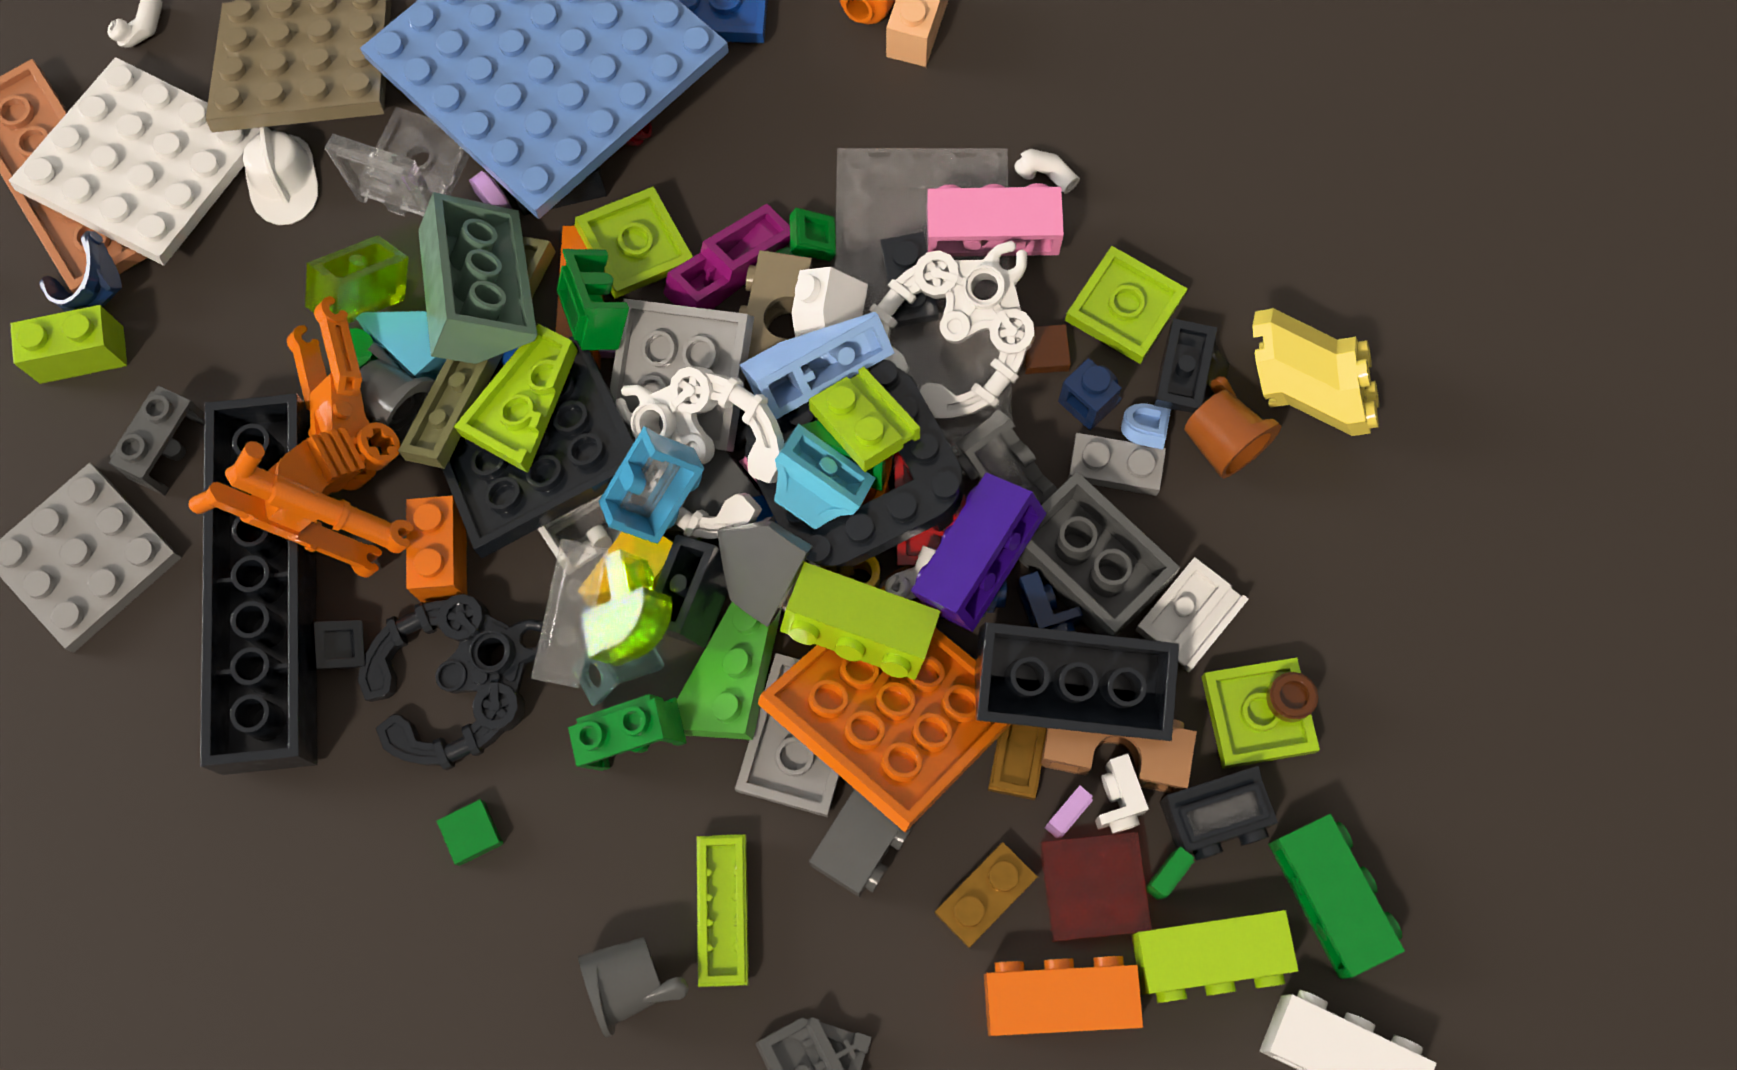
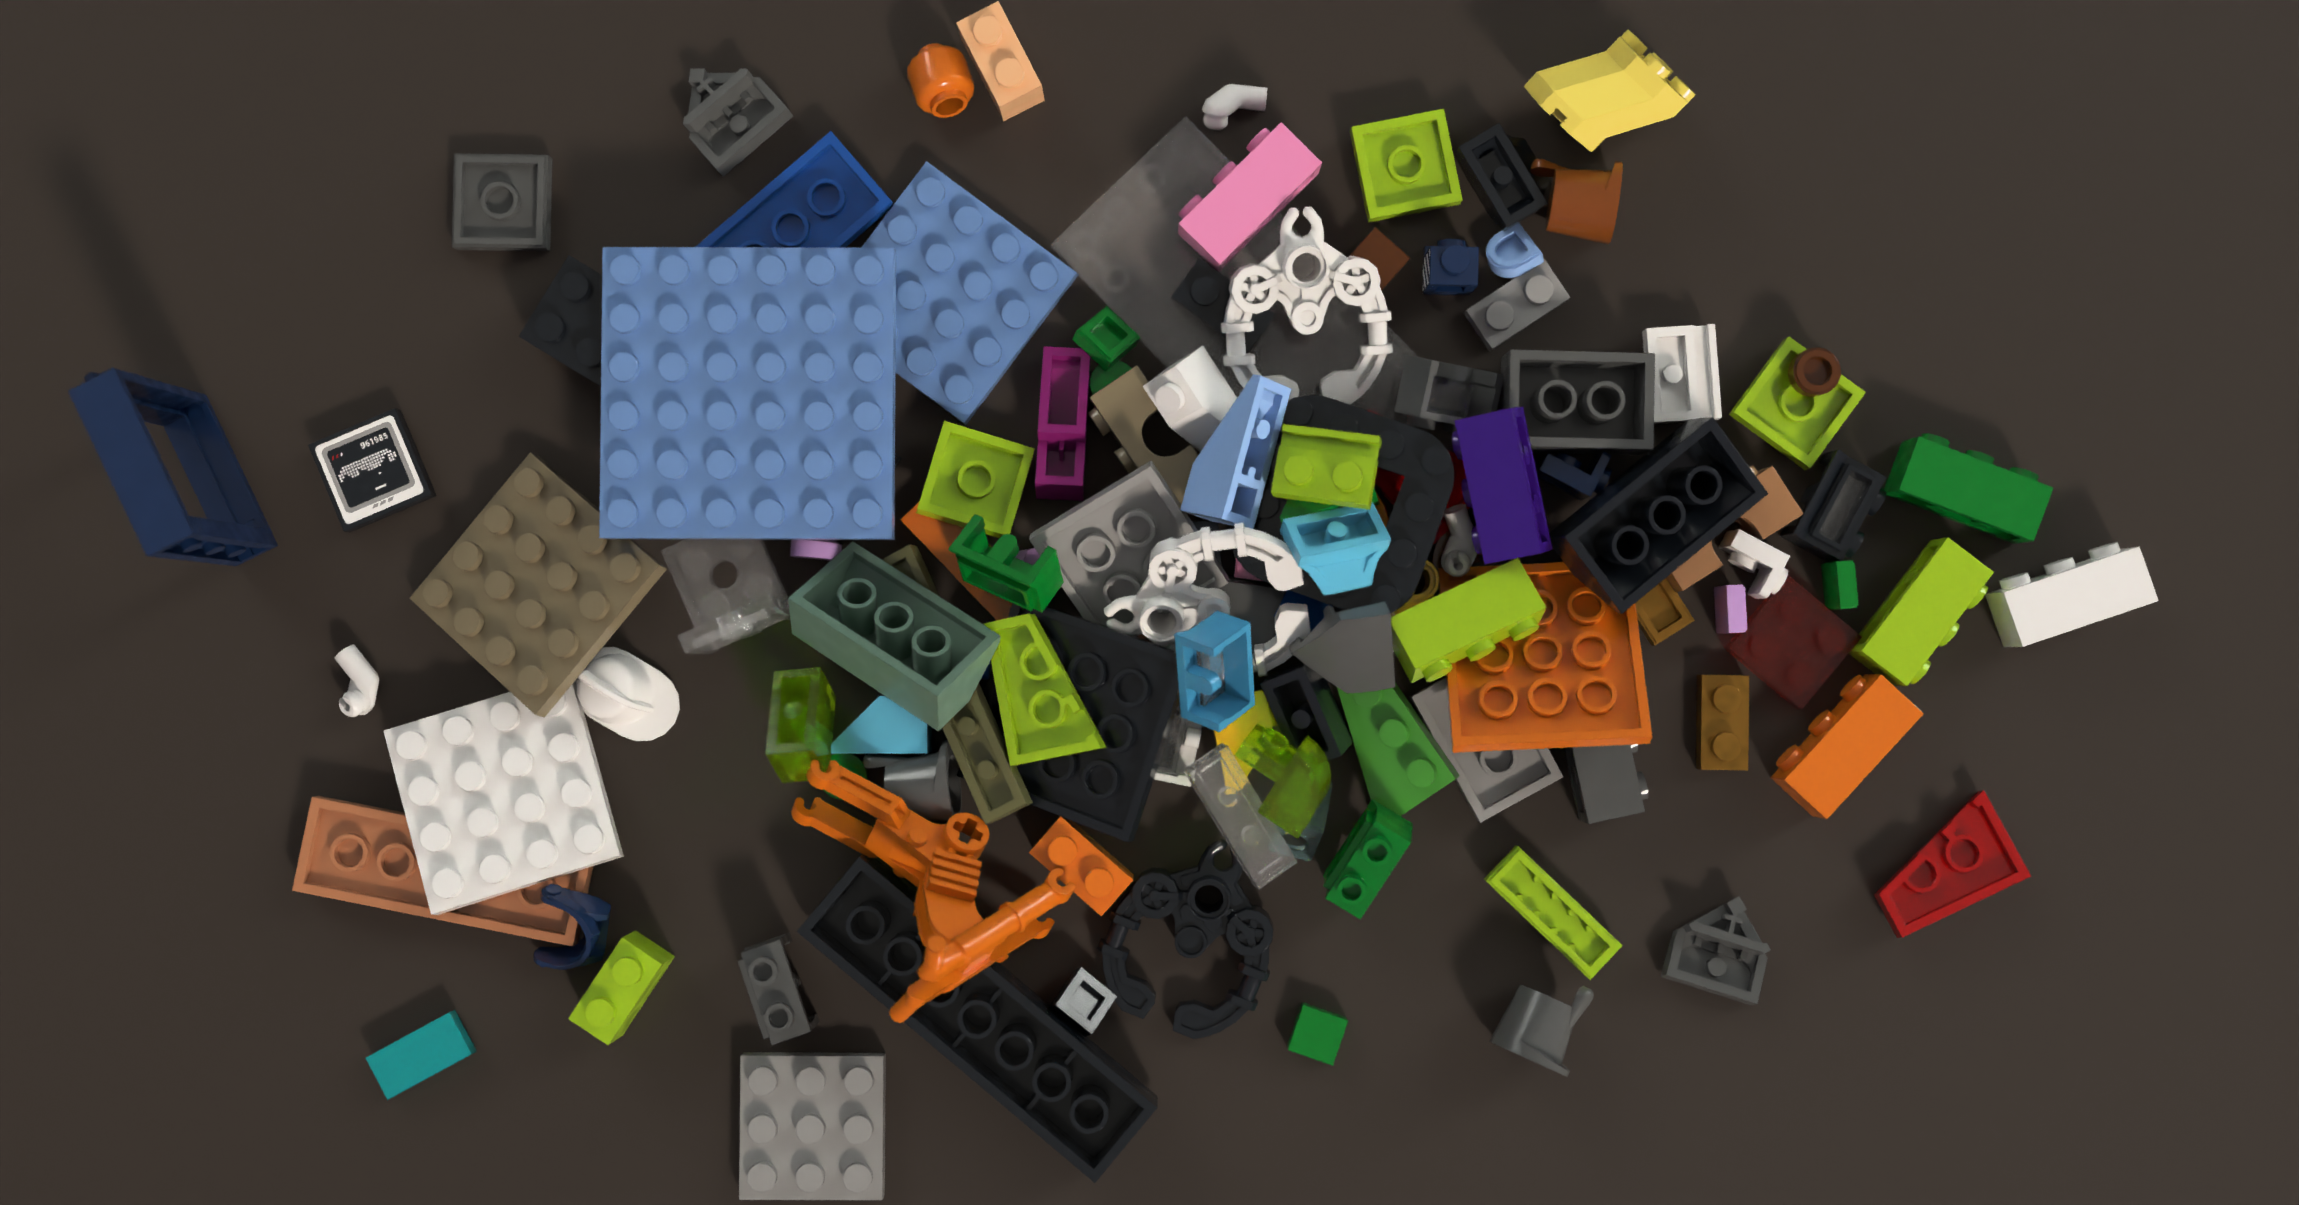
camera: 45 degrees left, 15 degrees up
(748, 128) = (964, 290): none -> medium blue plate

